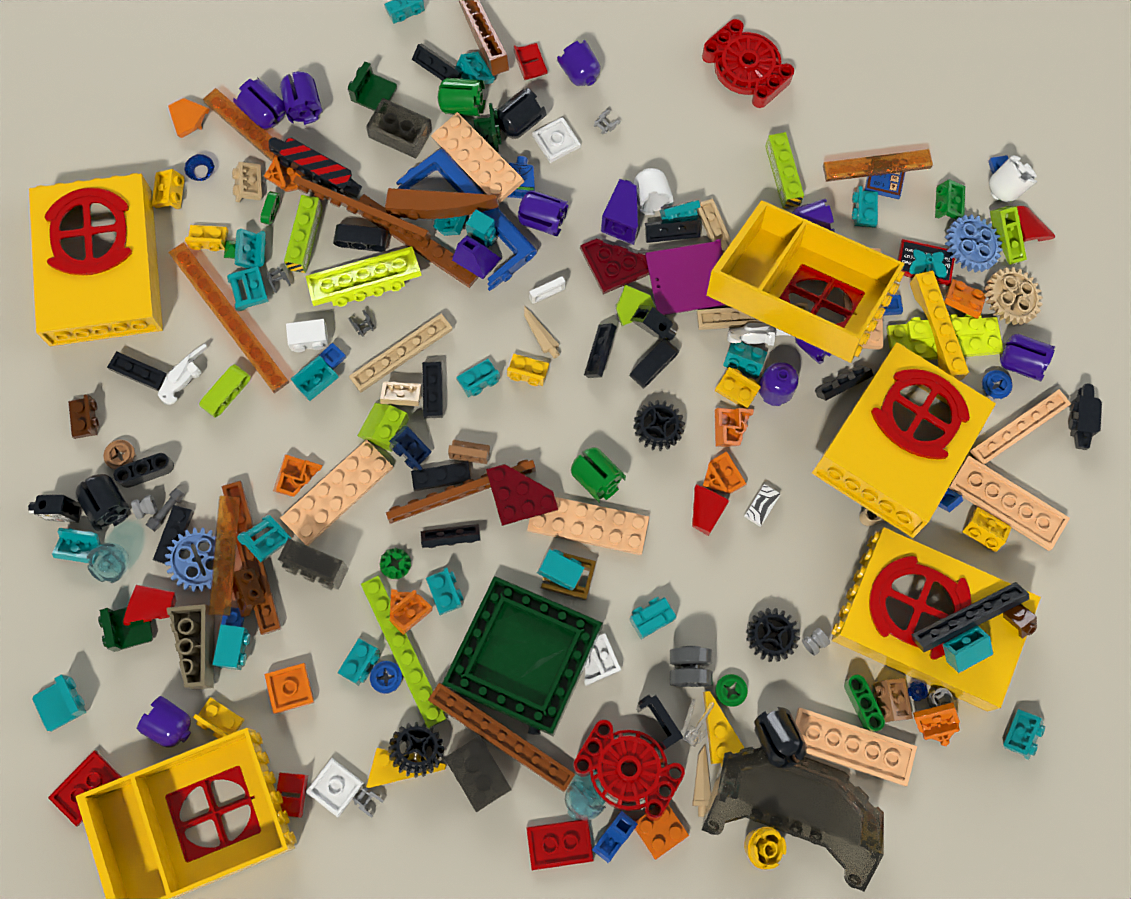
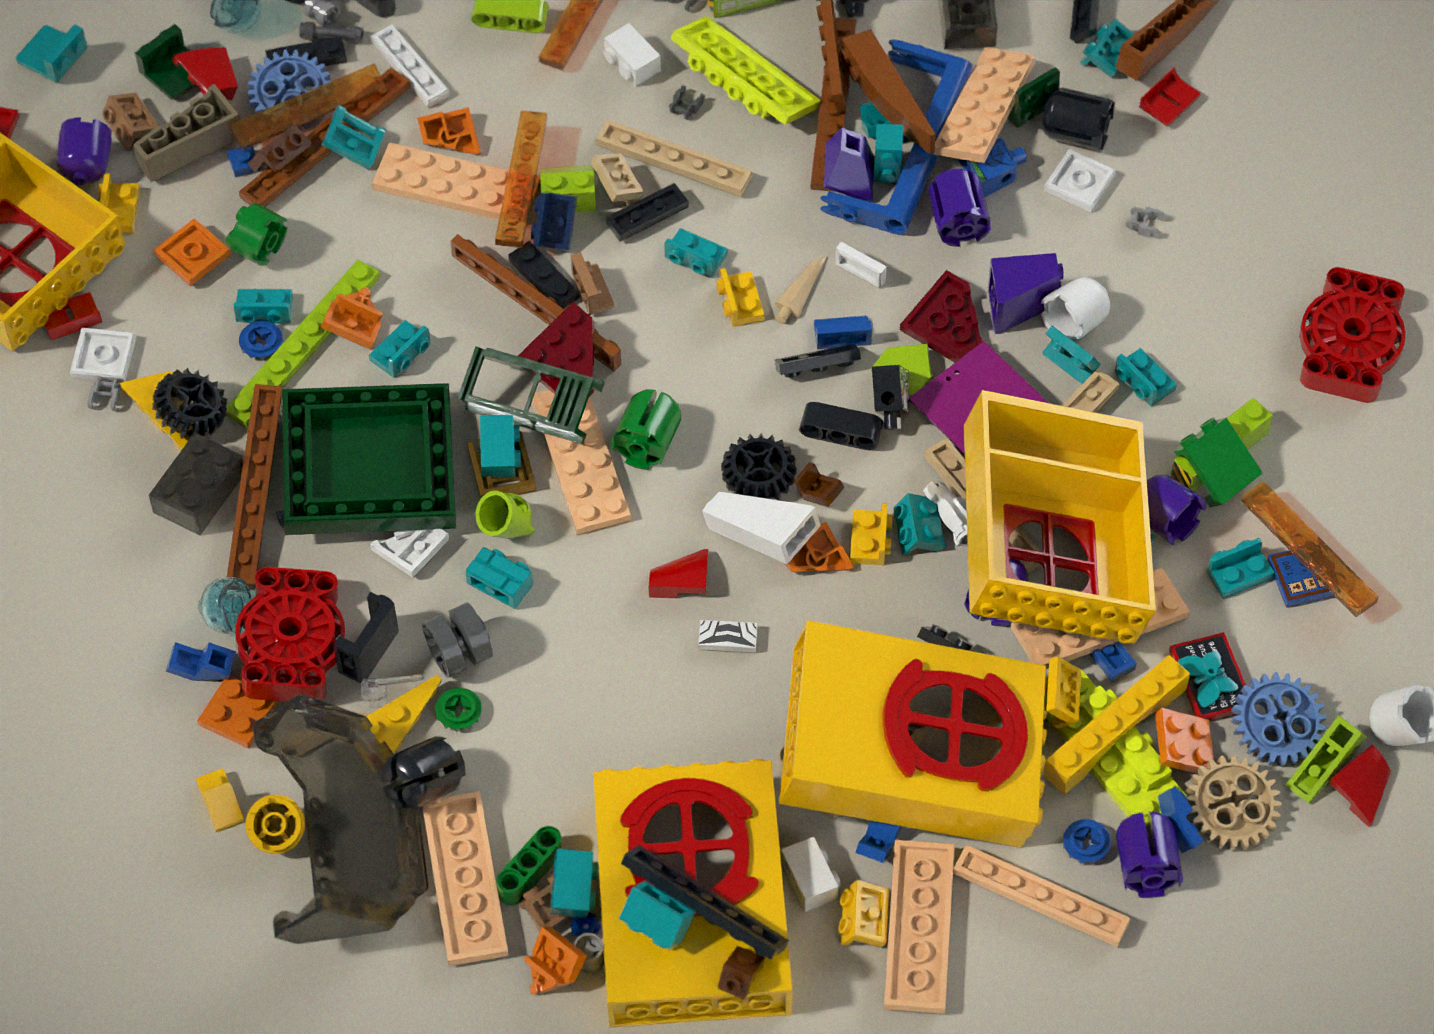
camera: 65 degrees right, 15 degrees down
(152, 677) = (128, 118): none -> medium nougat bracket
(224, 473) = (410, 65): none -> white tile
(231, 647) = (206, 170): teal brick -> none
(306, 639) = (257, 233): none -> green brick
(312, 564) = (348, 196): clear smoke brick -> none
(314, 378) = (582, 87): teal bracket -> none
(333, 356) = (623, 93): blue plate -> none
(360, 237) = (795, 44): black beam -> none
(366, 451) = (521, 179): none -> clear orange plate
(404, 564) = (405, 292): green gear -> none
(450, 536) = (472, 318): black plate -> none
(461, 96) = (1059, 45): green cylinder -> none
(559, 844) = (161, 612): red tile -> none
(563, 507) = (566, 406): none -> dark green piece
(580, 64) = (1200, 146): dark purple cylinder -> none
(585, 325) = (842, 332): none -> blue panel
(614, 592) = (504, 515): none -> lime piece
(672, 230) = (1041, 361): black plate -> none
(691, 398) = (817, 487): none -> reddish brown bracket
(706, 444) = (762, 524): none -> white slope
(712, 183) = (1144, 376): none -> teal bracket
(718, 872) = (219, 799): none -> yellow slope
(723, 475) = (741, 574): orange slope -> none
(768, 627) = (560, 730): black gear -> none
(778, 383) = (904, 572): dark purple cylinder -> none
(799, 175) = (1219, 460): none -> green panel
(816, 641) = (578, 774): light grey wheel -> none
(901, 685) = (572, 883): none -> teal brick
(911, 342) = (1063, 692): none -> yellow bracket
(950, 200) = (1329, 666): green bracket -> none
(954, 543) = (810, 874): none -> white brick
(1007, 327) = (1176, 808): none -> blue slope
(1085, 417) = (1111, 970): black hinge -> none

